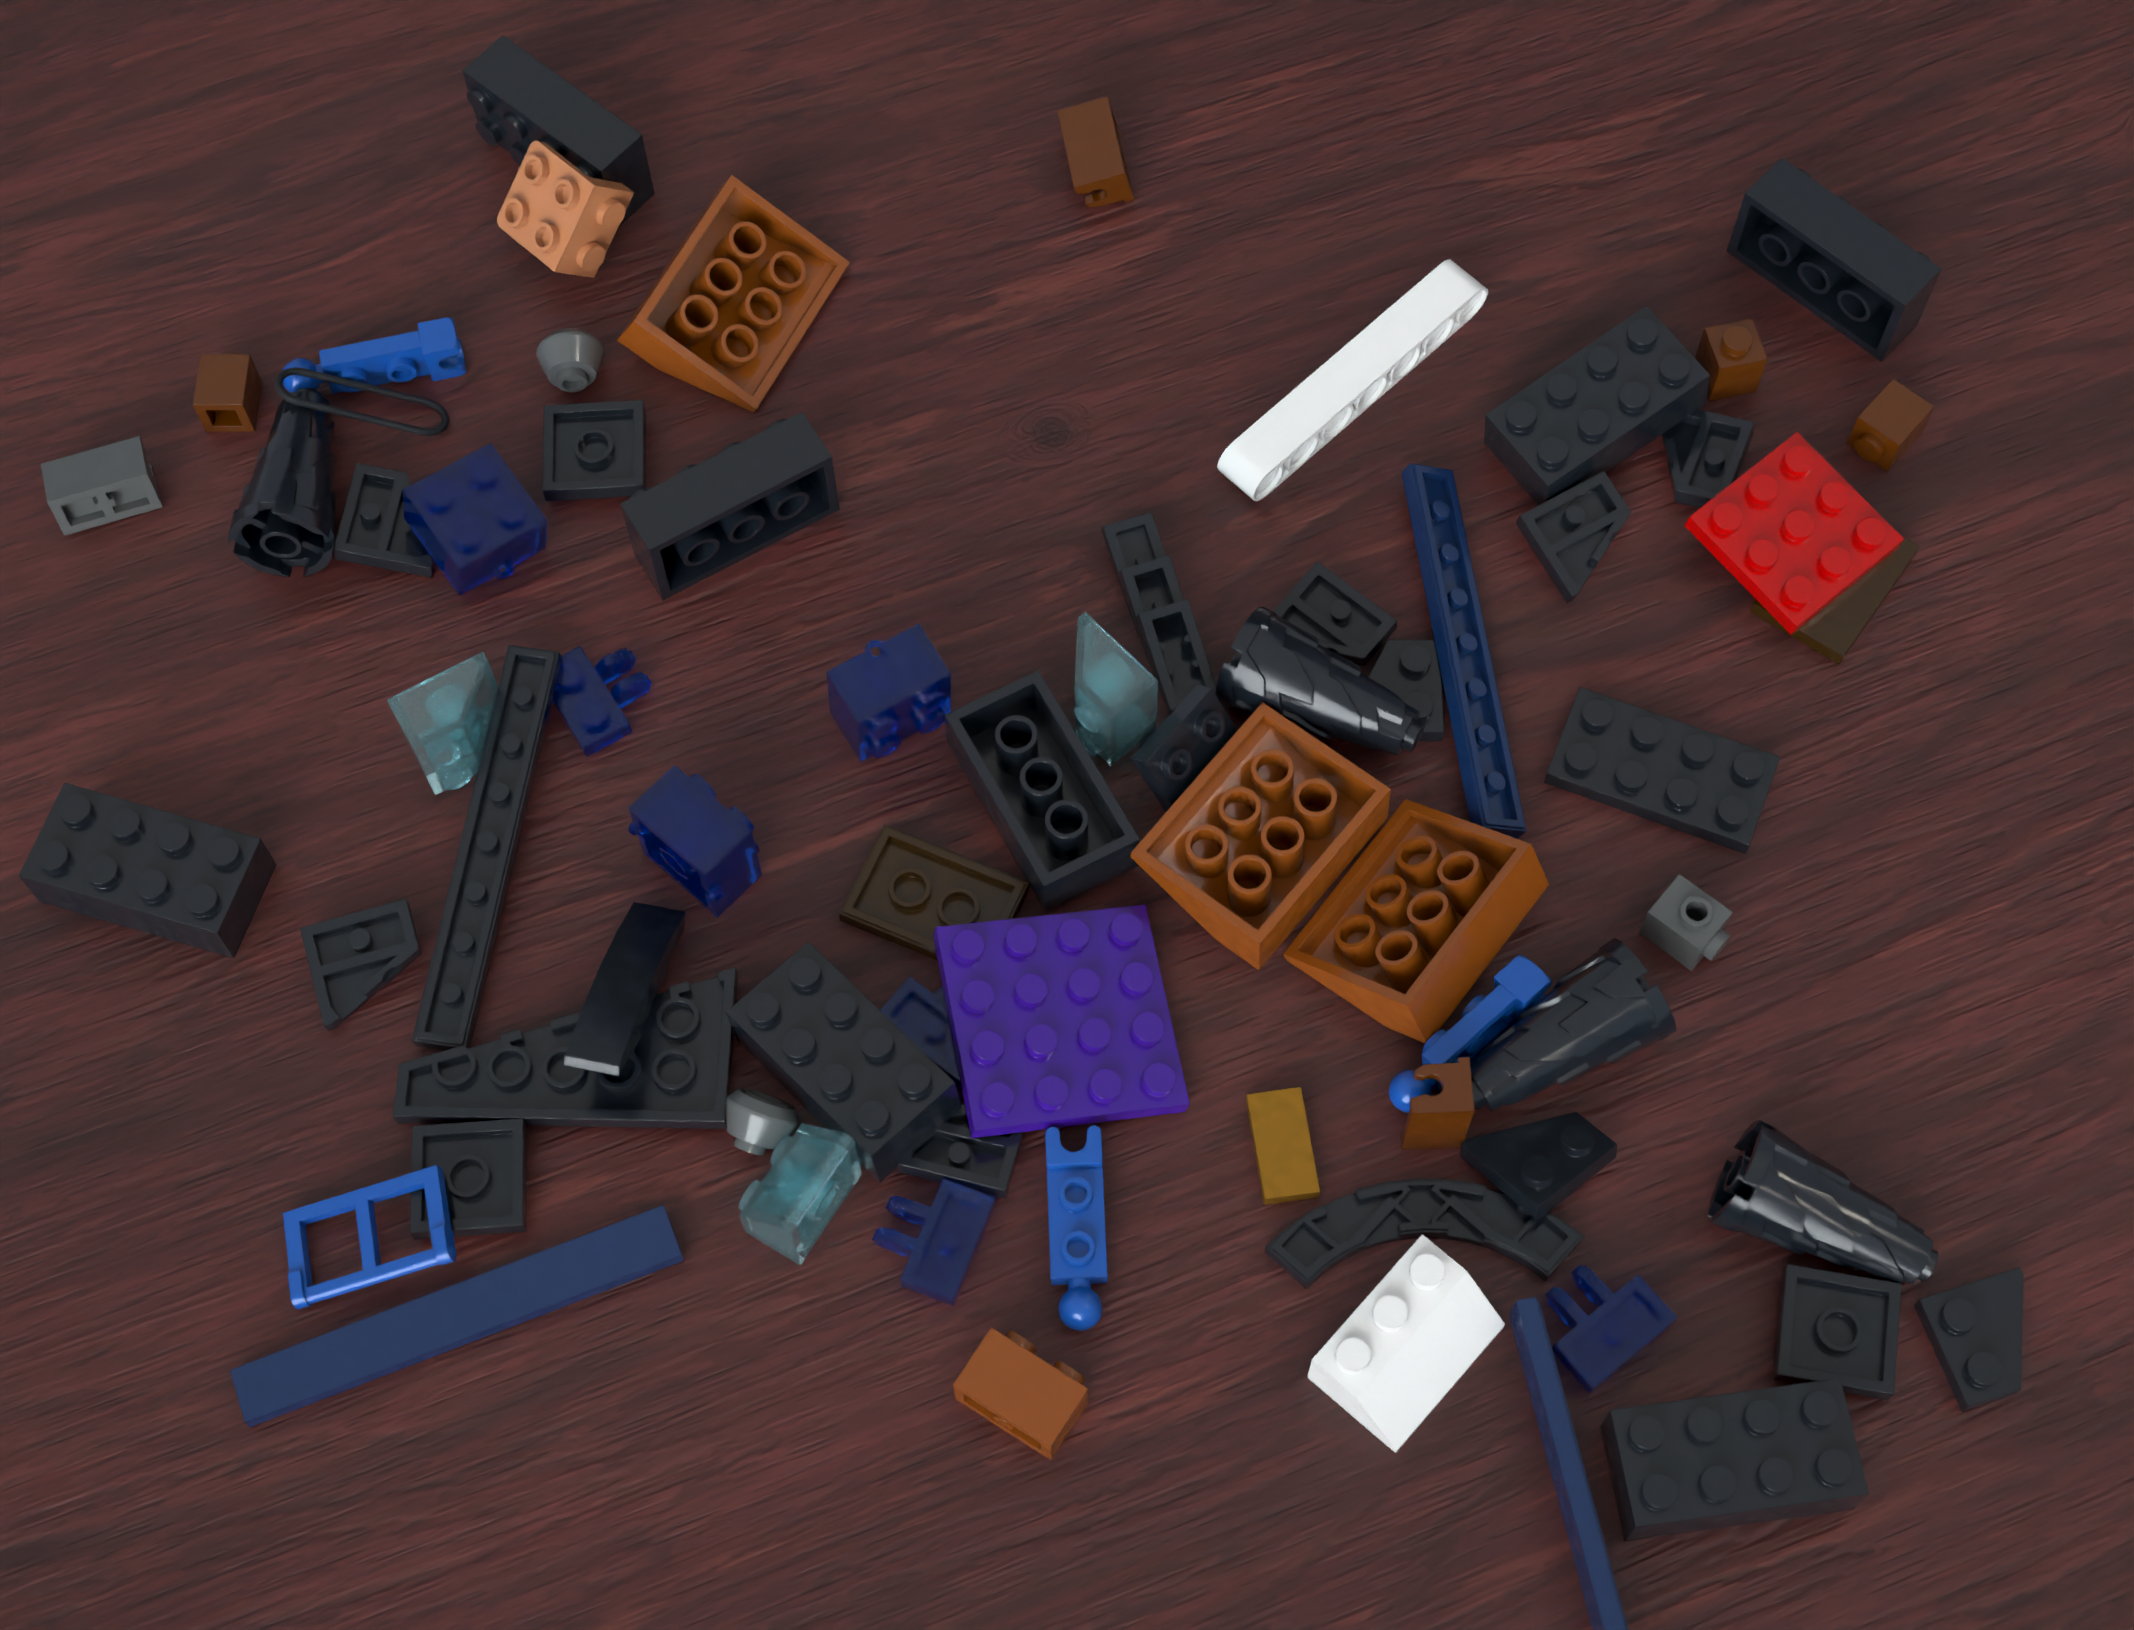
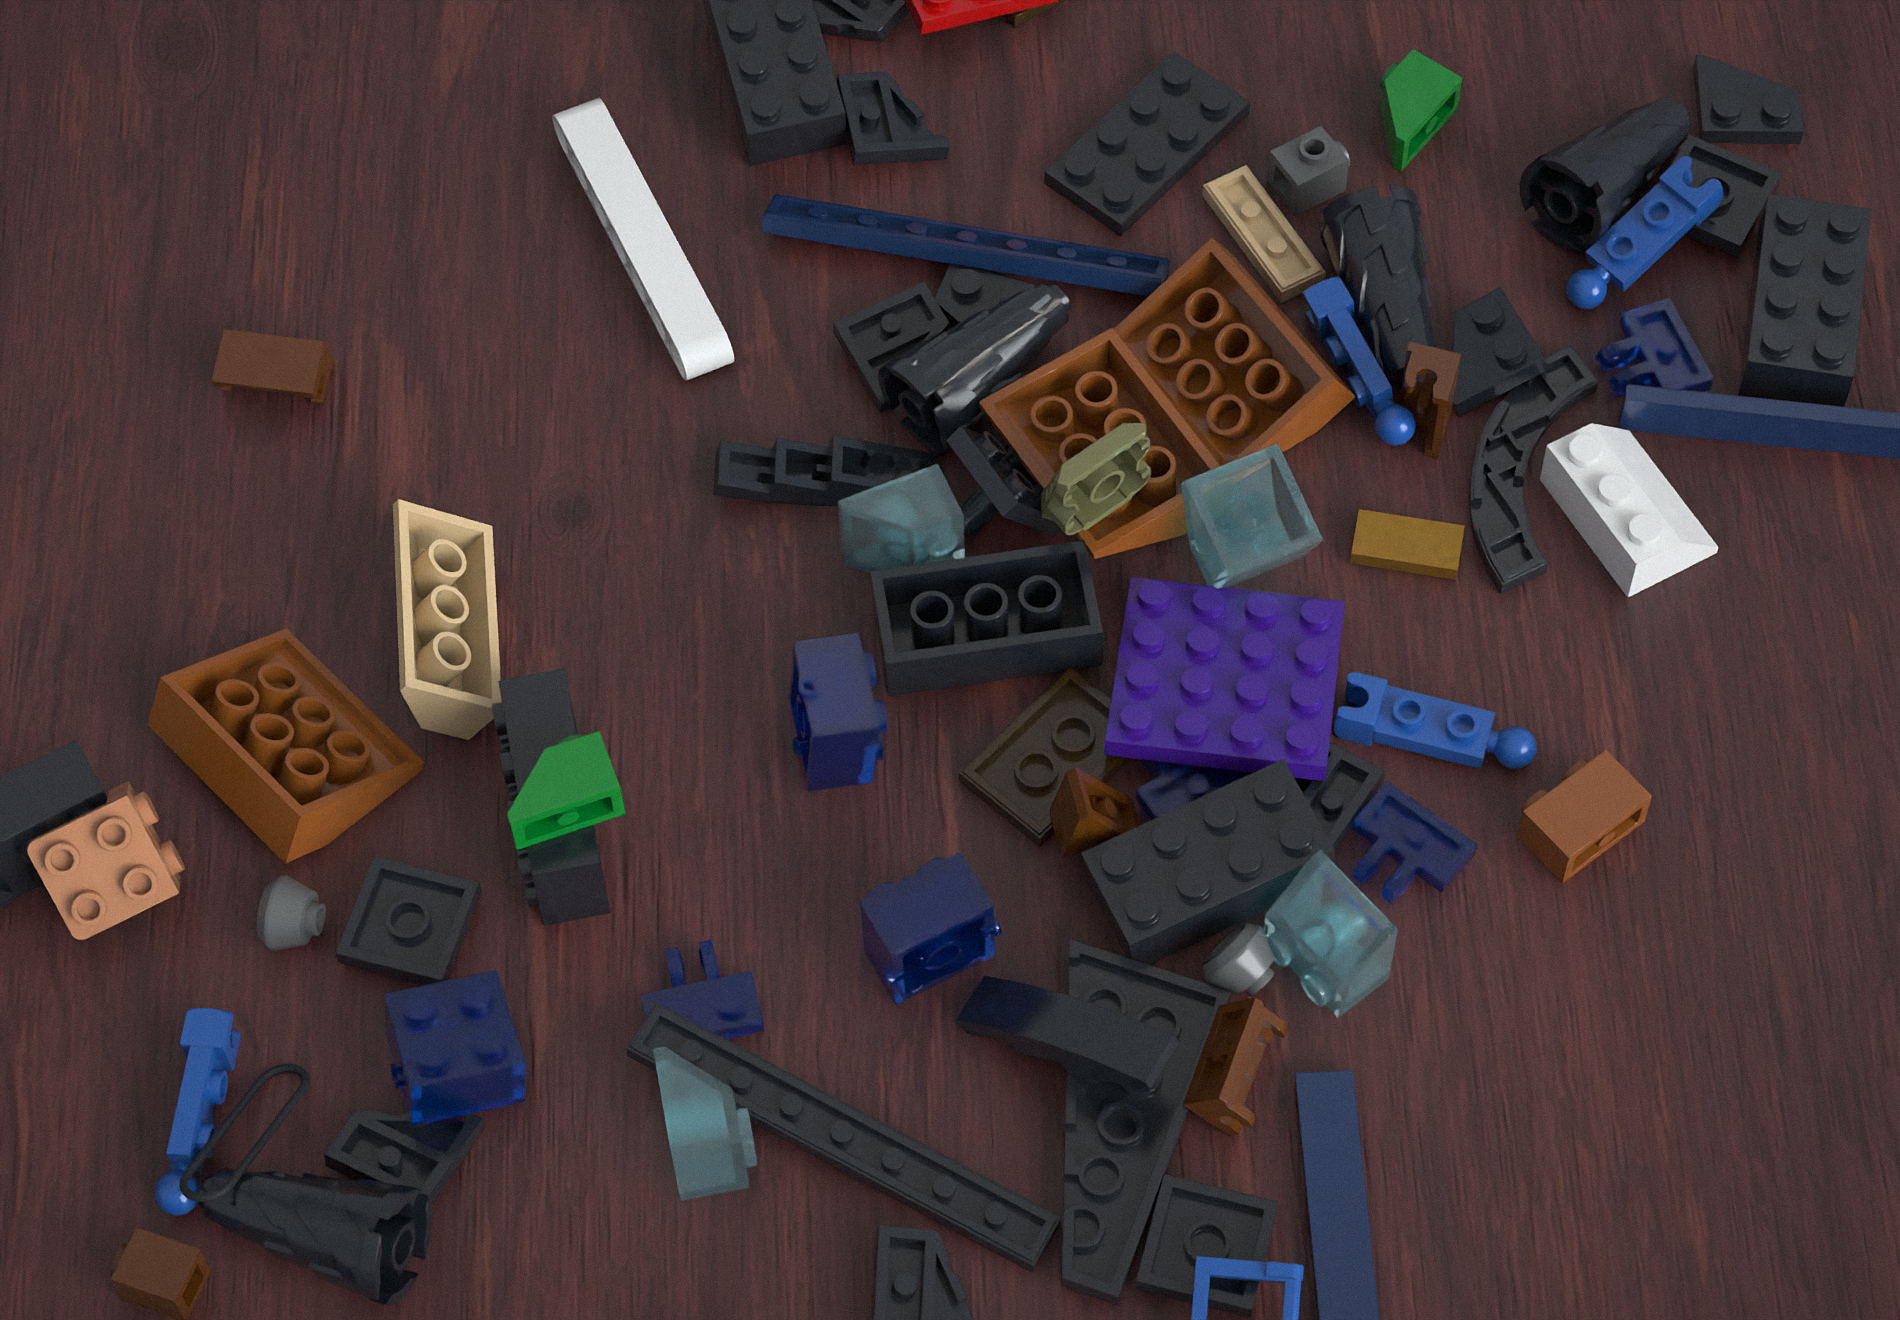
camera: 70 degrees left, 5 degrees down
(645, 1144) = (1231, 1063): none -> reddish brown hinge
(696, 494) = (566, 791): none -> green slope
(865, 949) = (1089, 812): none -> reddish brown slope
(875, 353) = (446, 619): none -> tan slope
(1186, 819) = (1098, 479): none -> olive slope
(1228, 978) = (1247, 518): none -> clear light blue slope
(1599, 906) = (1263, 233): none -> tan tile
(1745, 1269) = (1644, 234): none -> blue plate
(1812, 1000) = (1416, 104): none -> green slope

